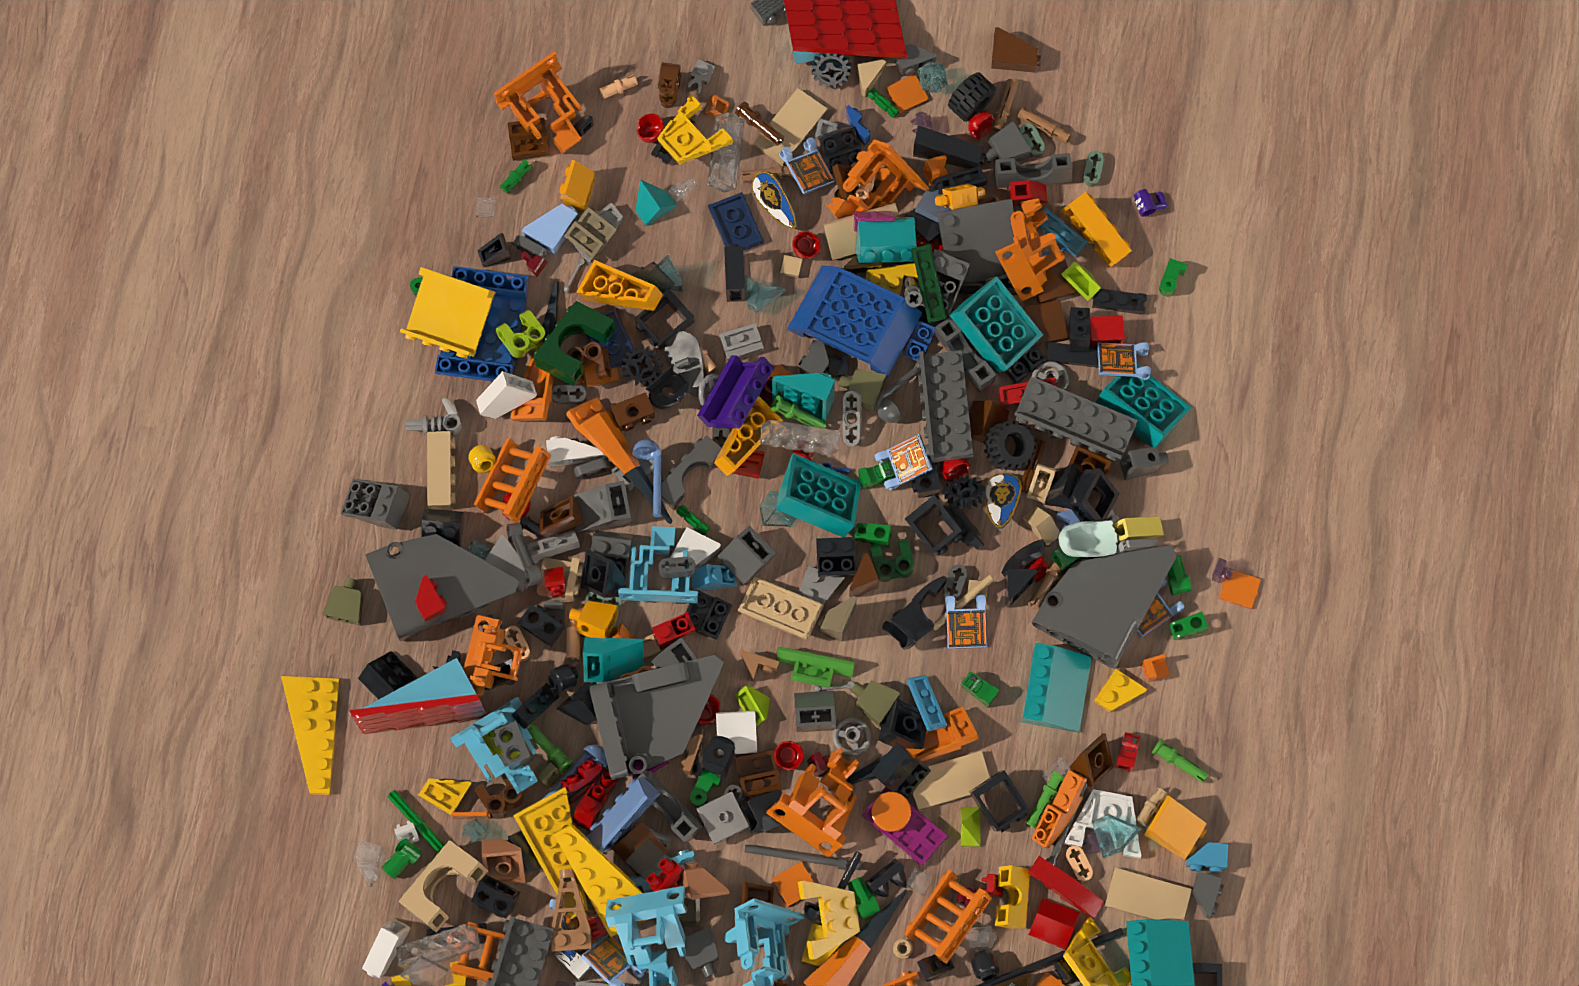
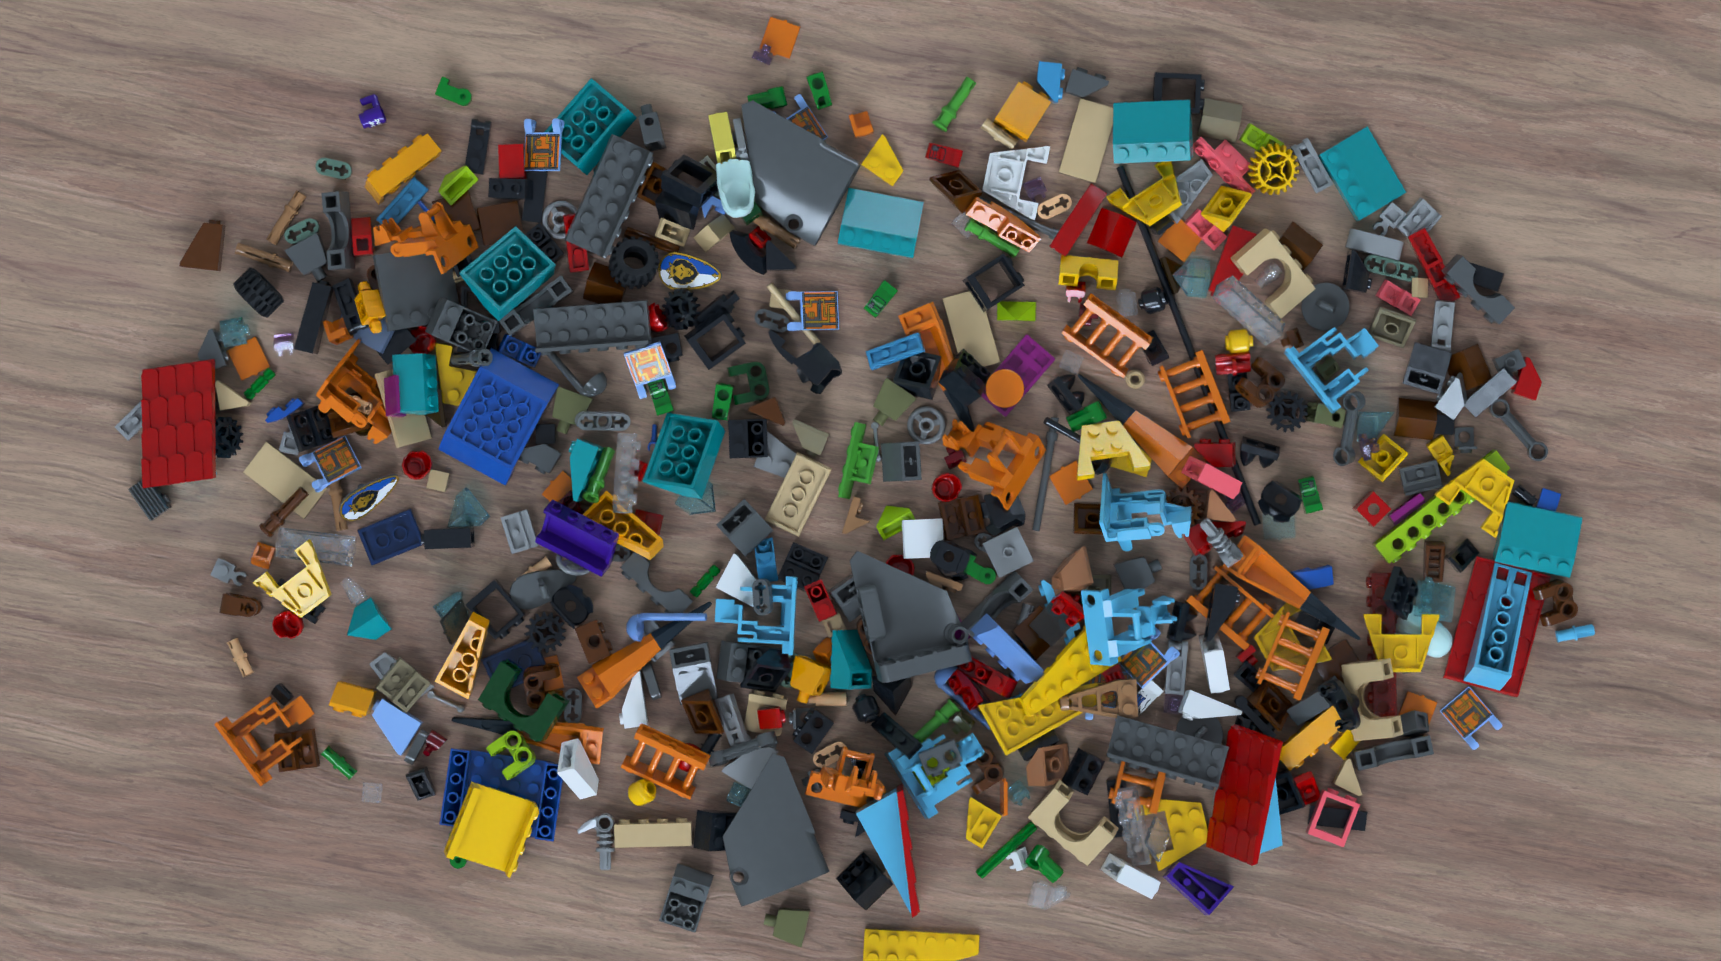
camera: 90 degrees left, 15 degrees up
(428, 601) = (796, 842): red slope -> none
(929, 283) = (466, 340): dark green tile -> none
(980, 124) = (286, 284): red hair -> none
(1113, 834) = (1029, 172): clear light blue slope -> none

